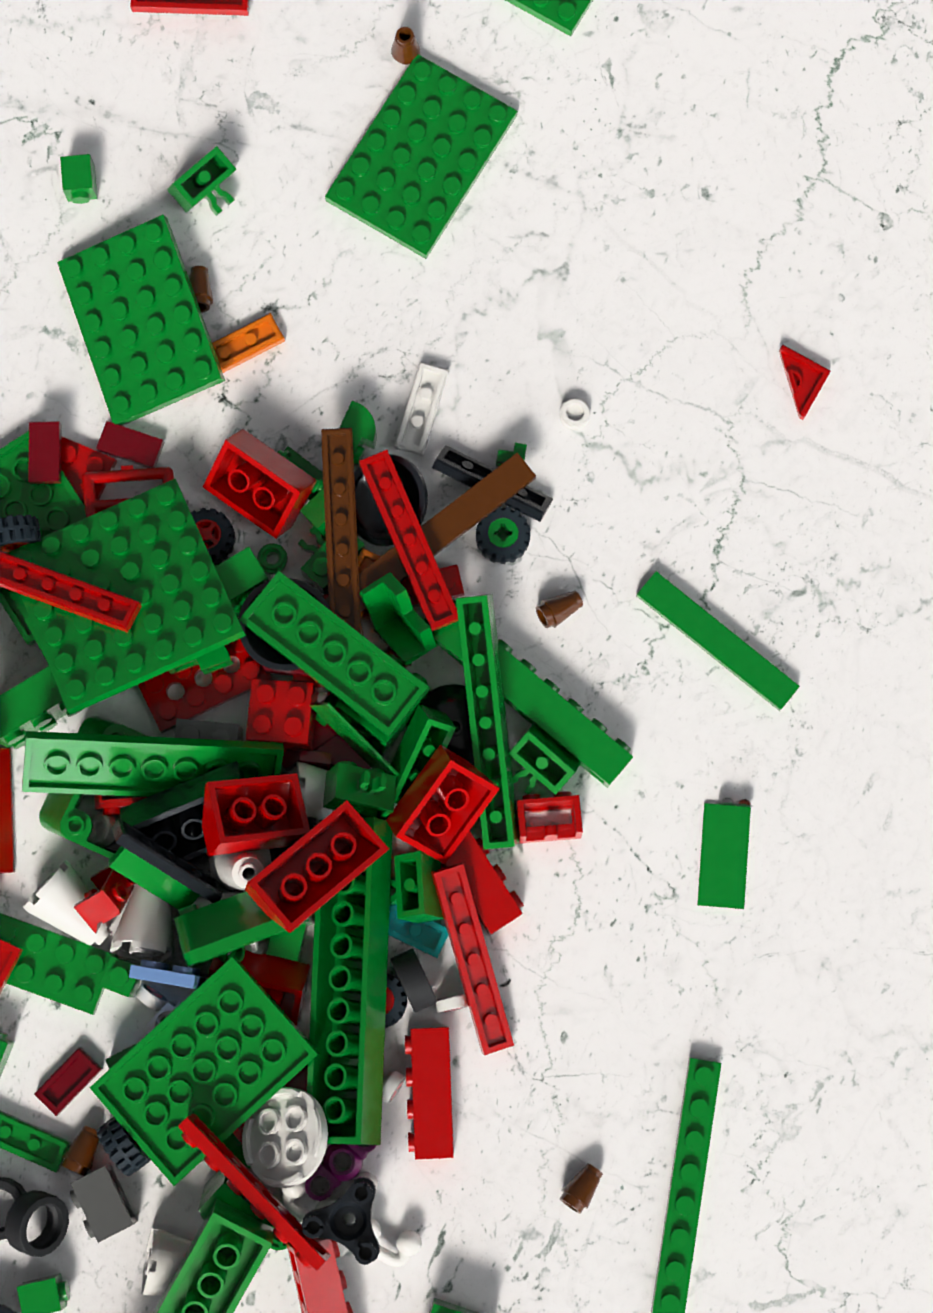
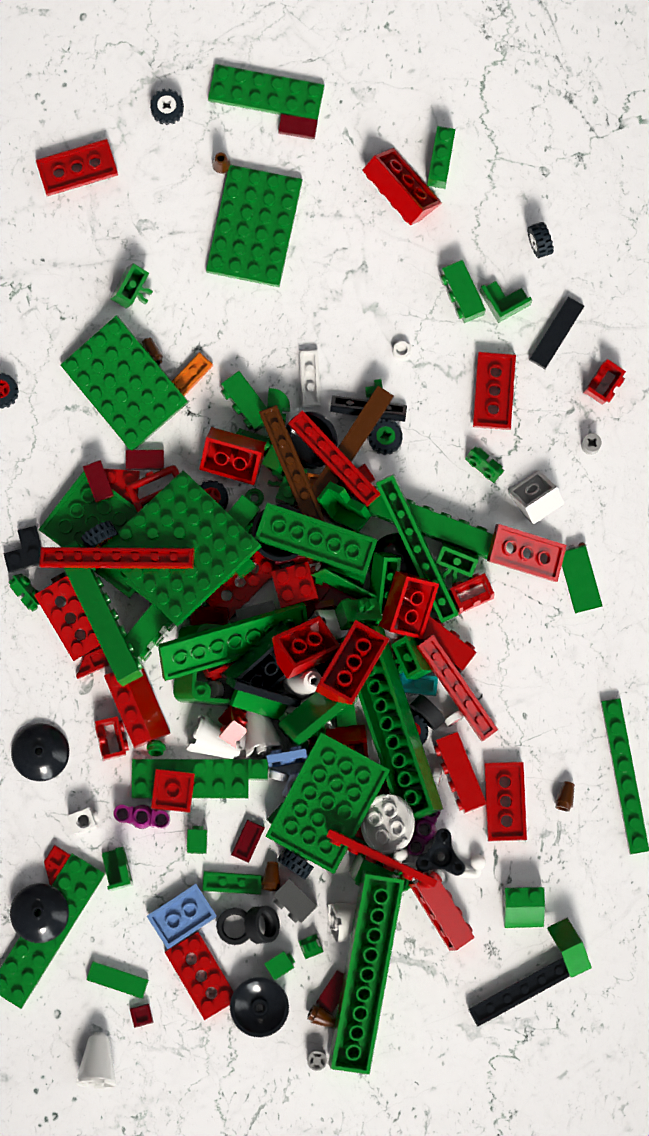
camera: 20 degrees left, 0 degrees up
(78, 178) = (54, 310): green brick -> none
(103, 1282) = (310, 946): none -> green tile
(137, 714) = (210, 615): none -> dark red tile
(310, 405) = (244, 400): none -> green brick
(497, 1182) = (495, 811): none -> red plate
(539, 33) = (298, 126): none -> dark red tile
(558, 608) = (433, 469): reddish brown cone -> none
(631, 617) = (490, 470): none -> green hinge
(634, 791) = (516, 560): none -> plate
(661, 169) = (401, 186): none -> red slope
(697, 357) = (462, 291): none -> green brick
(700, 705) = (536, 497): none -> white slope
(702, 541) = (483, 398): none -> red plate
(717, 641) = (533, 456): green tile -> none
(736, 147) = (441, 157): none -> green brick
(755, 401) = (501, 305): none -> green panel
(804, 378) = (530, 282): red tile -> none
(808, 657) = (588, 447): none -> light grey wheel
(819, 467) = (556, 333): none -> black tile
(843, 318) = (540, 240): none -> black wheel
(890, 569) = (606, 366): none -> red window

